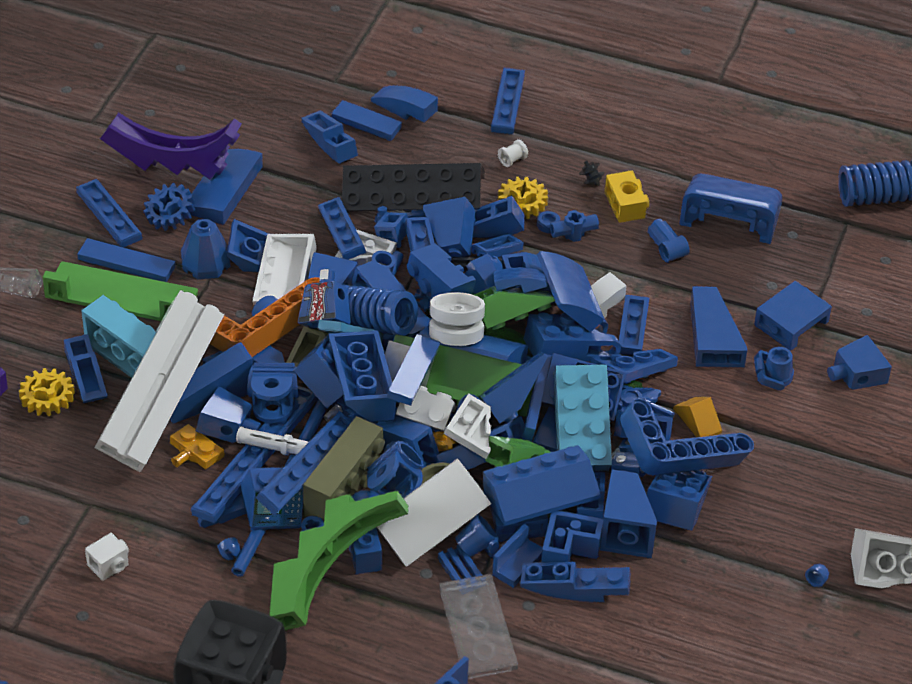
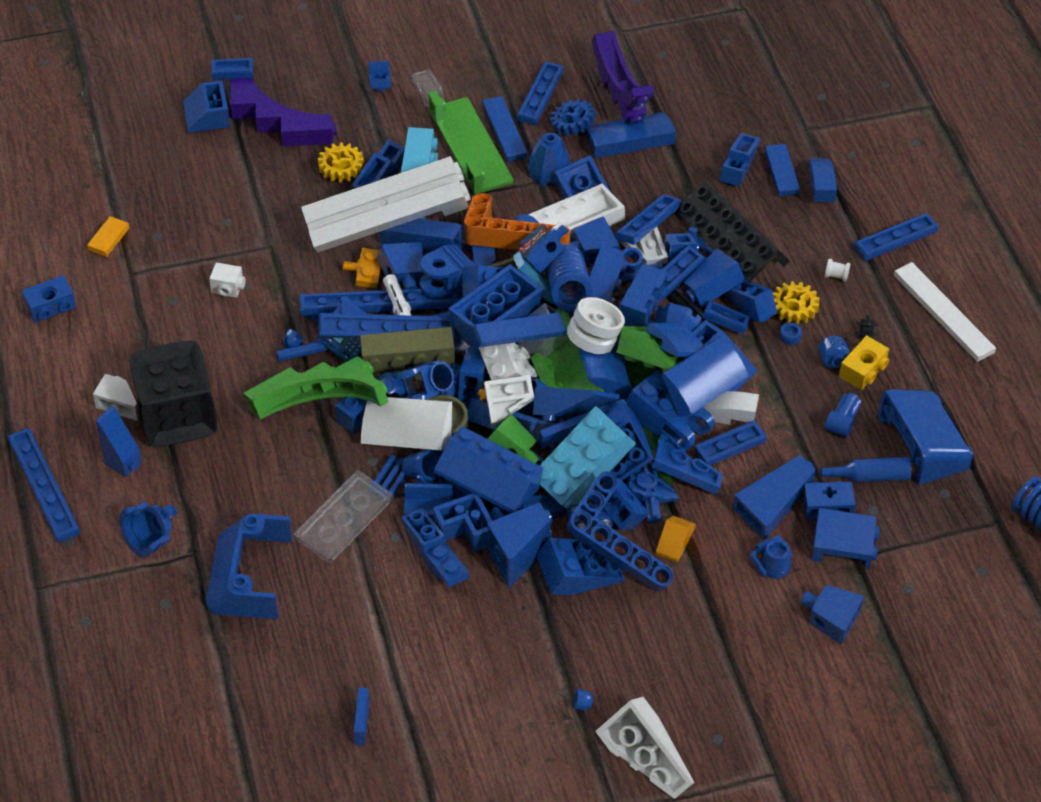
camera: 55 degrees right, 5 degrees up
(574, 225) = (797, 349): blue axle -> none
(600, 204) = (833, 351): none -> blue head
(613, 122) = (944, 312): none -> white tile
(740, 256) = (872, 470): none -> blue piece
(746, 298) = (830, 496): none -> blue brick

